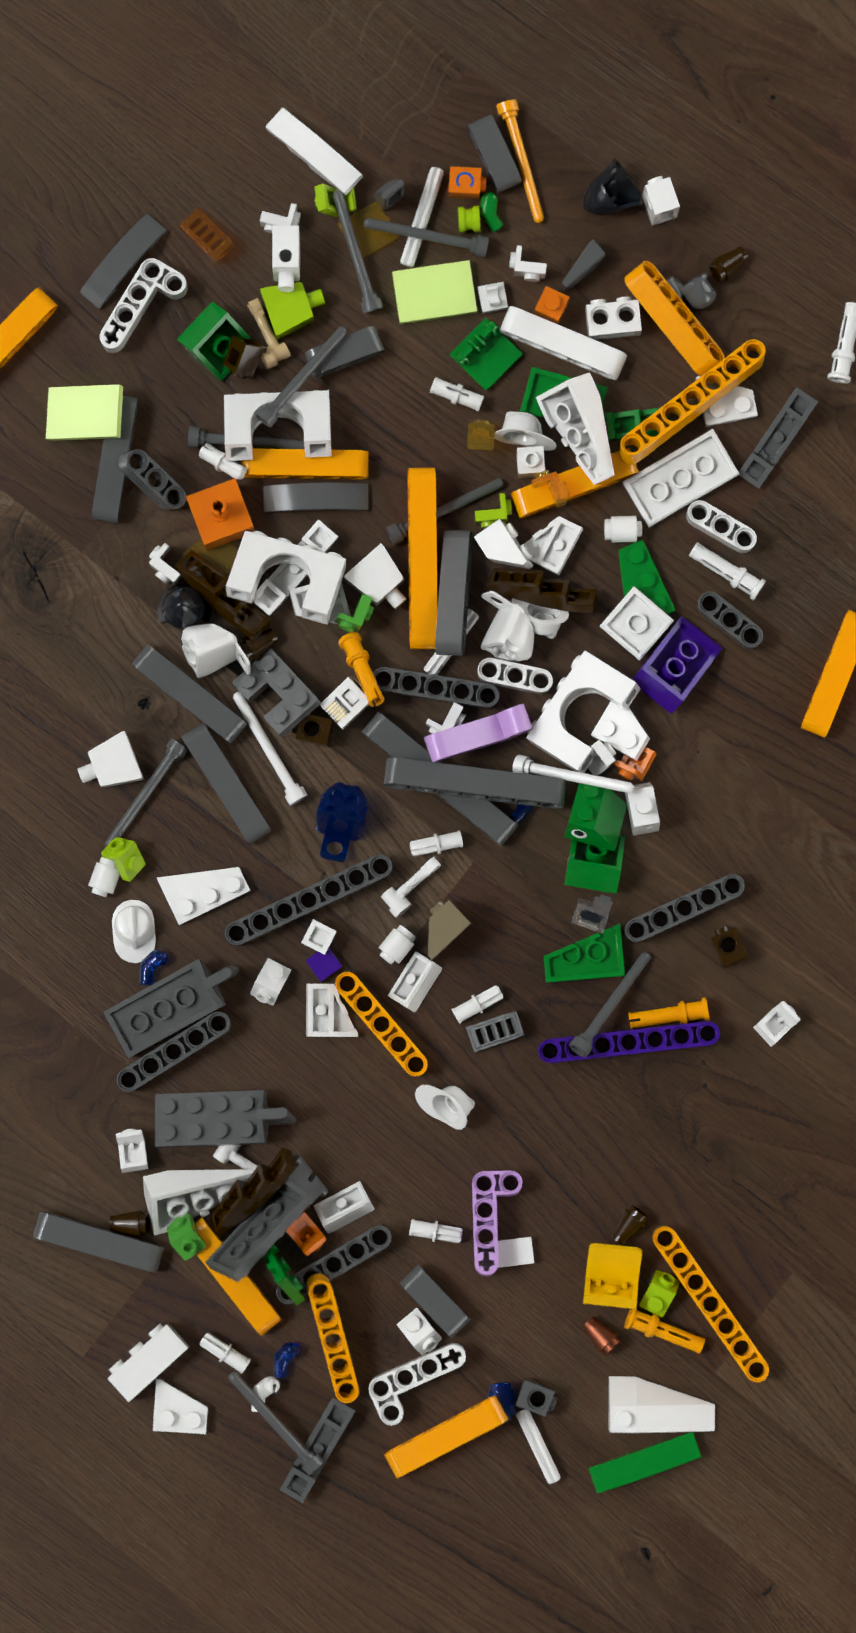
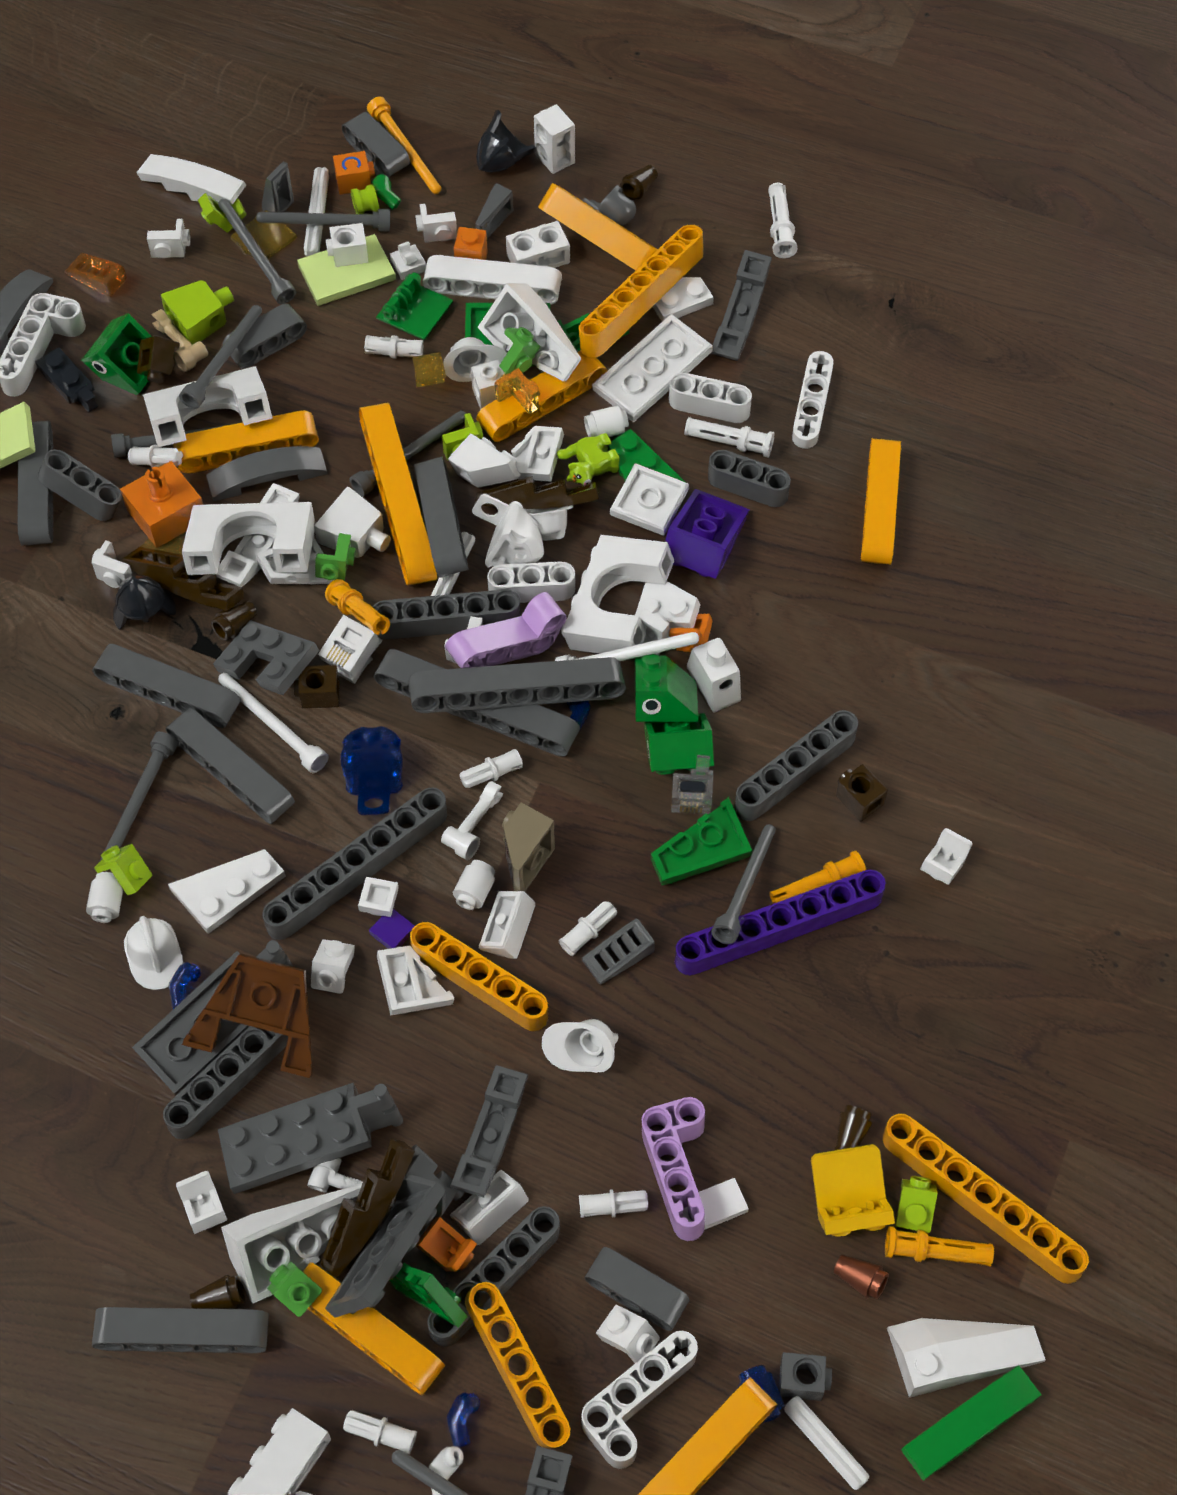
camera: 15 degrees left, 25 degrees down
(112, 763) = (91, 775): white torso -> none
(161, 349) = (67, 378): none -> black hinge
(211, 648) = (183, 631): white piece -> none
(211, 1011) = (262, 997): none -> reddish brown wing
(286, 256) = (182, 266): white torso -> none
(358, 1153) = (490, 1132): none -> dark grey slope
(449, 267) = (347, 245): none -> white brick
(568, 443) = (521, 352): none -> bright green bracket
(600, 563) = (592, 457): none -> lime animal
(811, 548) = (812, 399): none -> white beam

